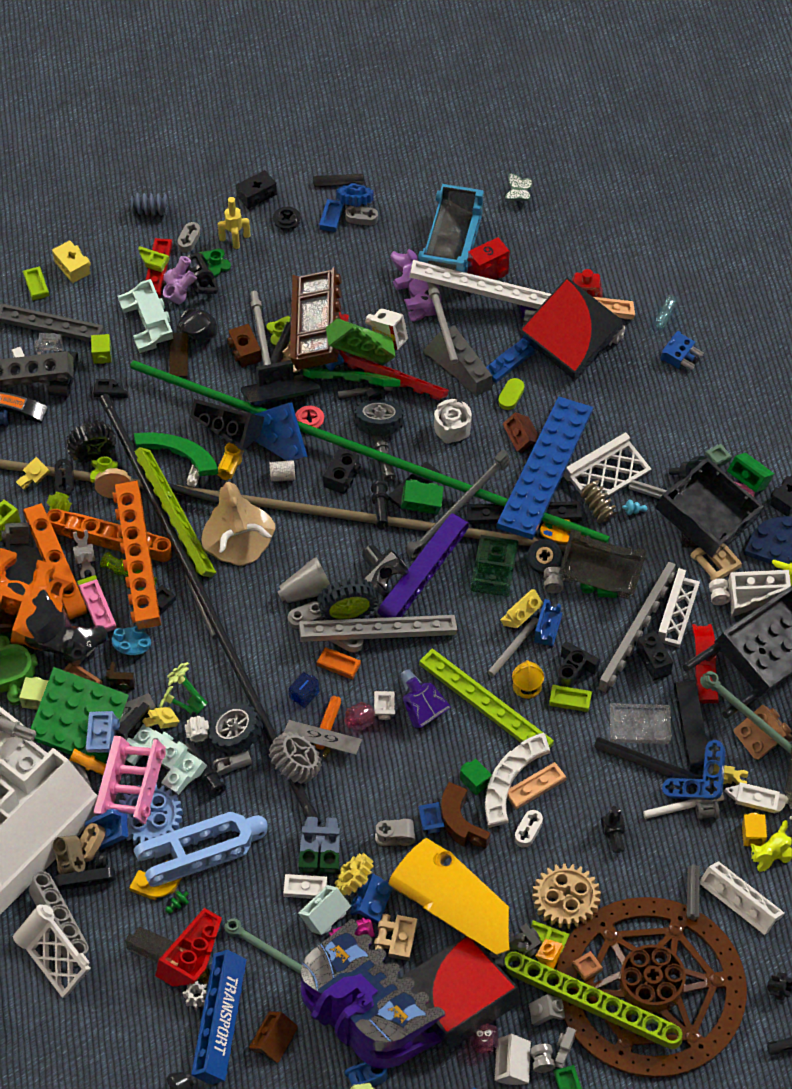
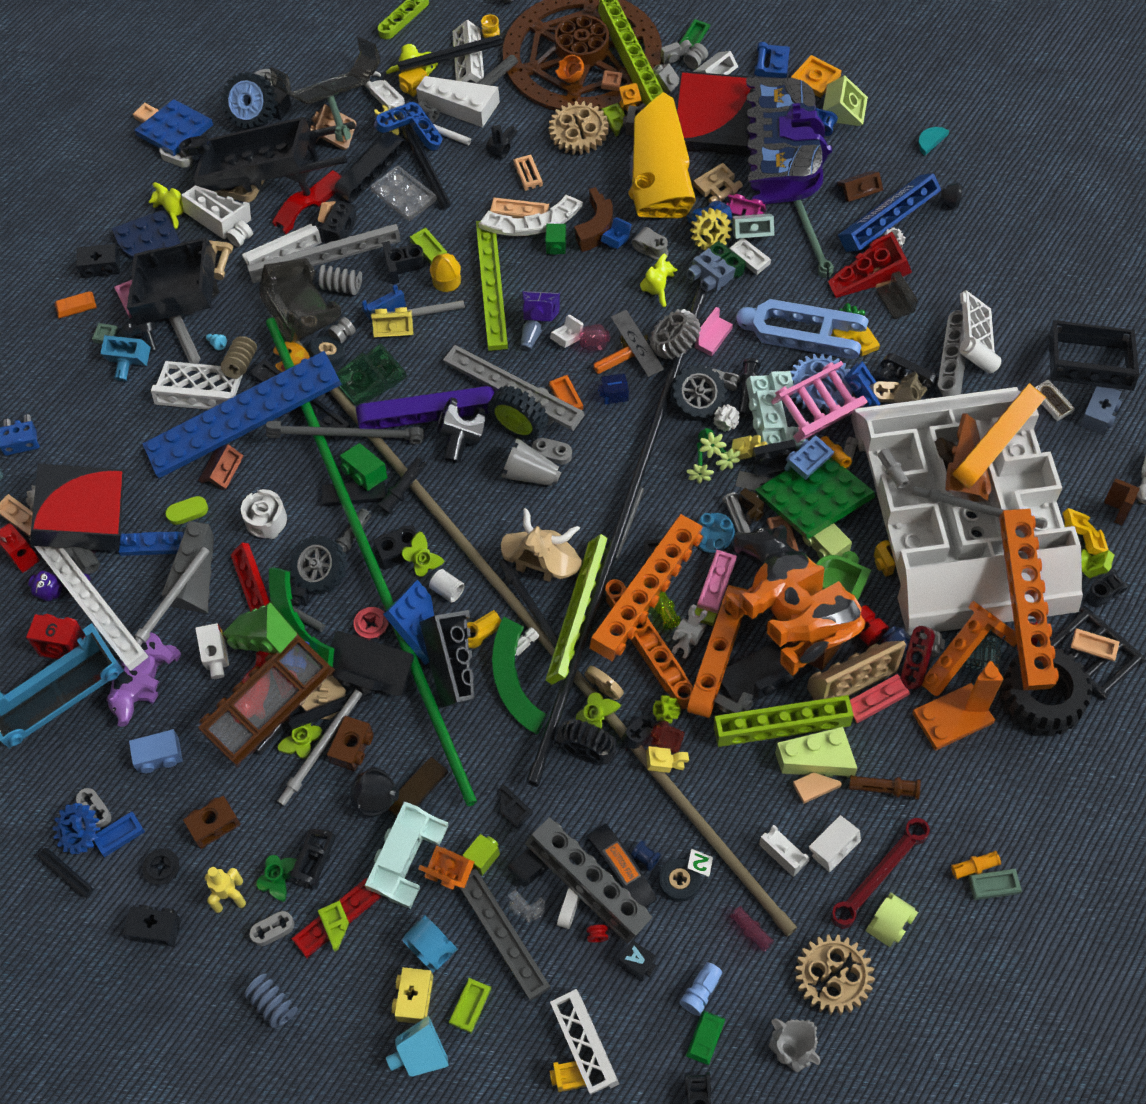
camera: 135 degrees left, 5 degrees up
(39, 238) = (418, 1050): none -> medium azure torso
(44, 487) = (667, 737): none -> clear red bracket
(84, 283) = (429, 944): none -> dark azure brick
(112, 322) = (448, 867): none -> orange bracket
(121, 664) = (736, 512): none -> light grey axle
(177, 291) = (345, 855): lavender pin -> none
(178, 272) = (334, 877): lavender pin -> none
(272, 795) = (712, 333): none -> bright pink panel
(282, 253) = (208, 833): none -> reddish brown brick
(315, 470) = (421, 555): none -> lime animal
(358, 260) = (156, 751): none -> medium blue brick
(359, 800) = (656, 278): none -> neon yellow animal
(532, 830) = (555, 186): white beam -> none
(540, 283) = (45, 585): none -> dark purple head
(556, 825) = (532, 183): none -> light nougat tile
(598, 611) = (339, 281): none -> light grey piece
(628, 936) = (570, 69): none -> orange hair
(675, 654) = (325, 210): none -> light nougat tile
(680, 446) = (124, 353): none -> dark azure brick
(693, 839) = (459, 99): none -> white wedge
(743, 865) = (450, 53): none -> black axle
(750, 472) = (104, 293): green brick -> none
(753, 933) = (490, 26): none -> yellow wheel
(770, 455) = (75, 304): none -> orange tile

